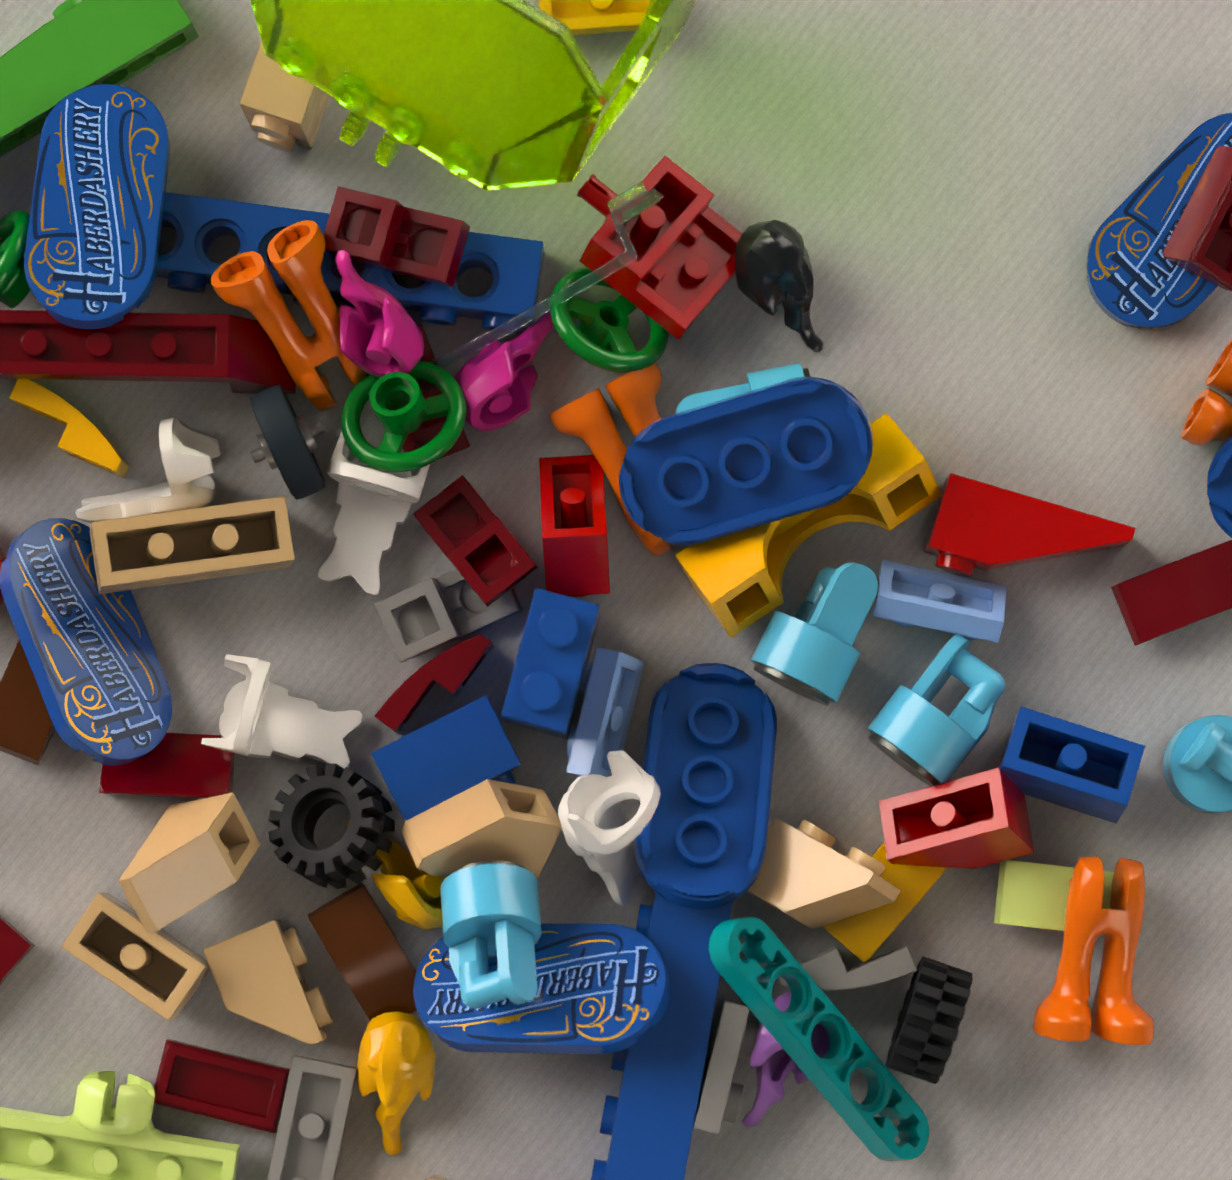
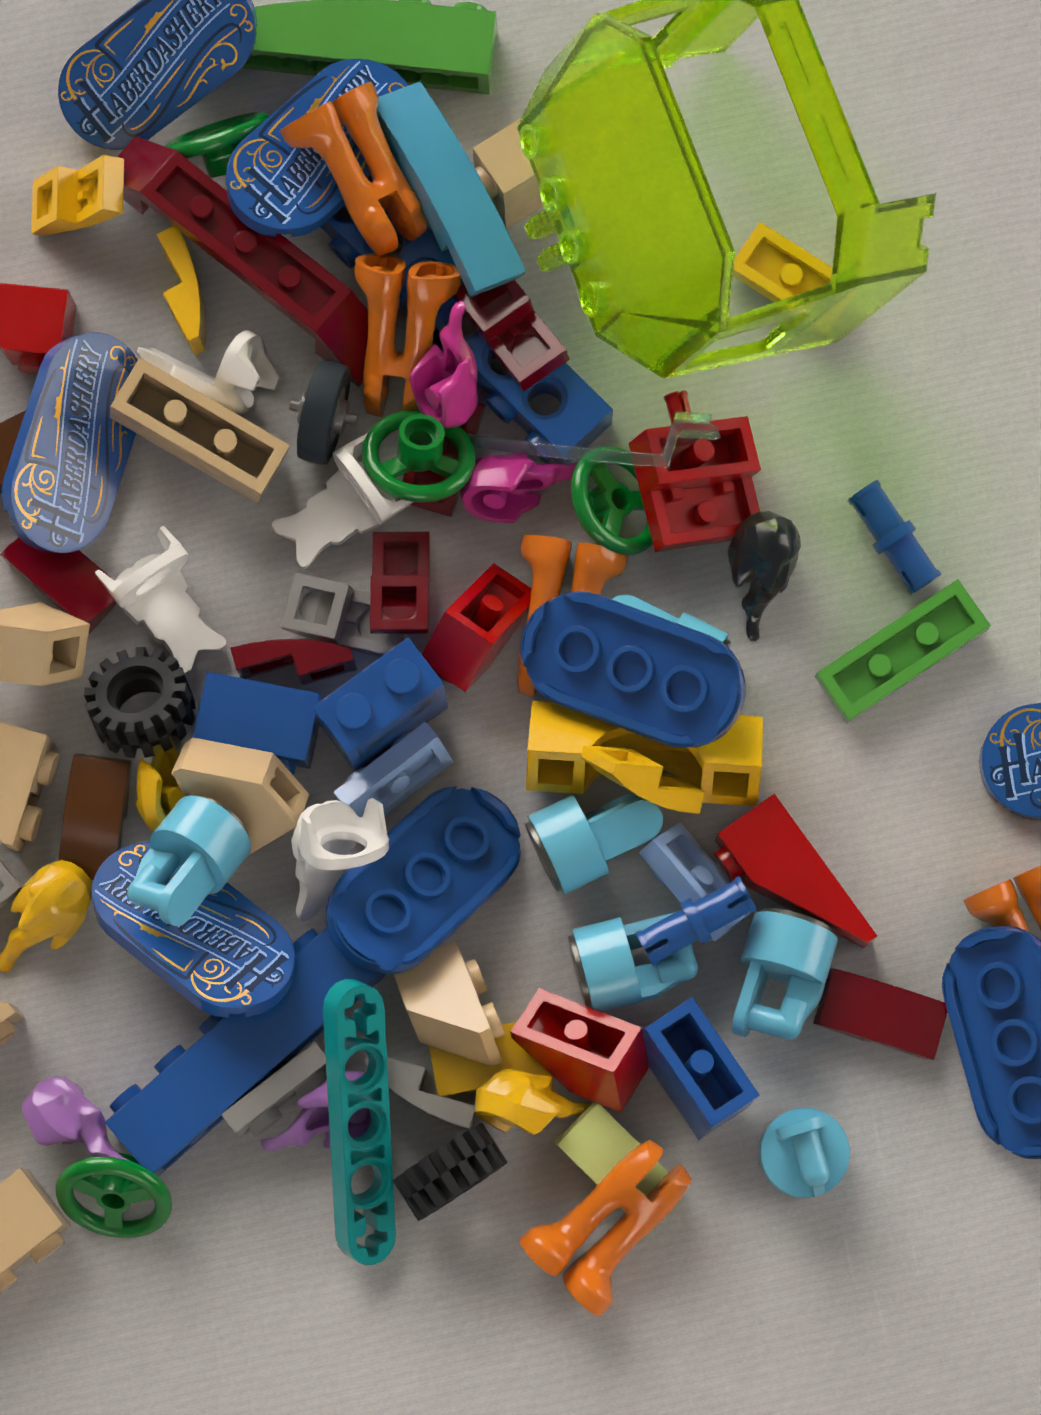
camera: 40 degrees right, 5 degrees down
(177, 224) = (364, 200): none -> orange piece
(241, 155) = (448, 189): none -> dark azure slope
(830, 548) = (644, 778): none -> yellow slope
(873, 163) = (894, 537): none -> blue pin
(944, 911) = (522, 1102): none -> yellow piece
(959, 259) = (902, 651): none -> bright green plate
(972, 638) = (696, 921): none -> blue pin
(1068, 598) = (789, 950): none -> medium azure piece

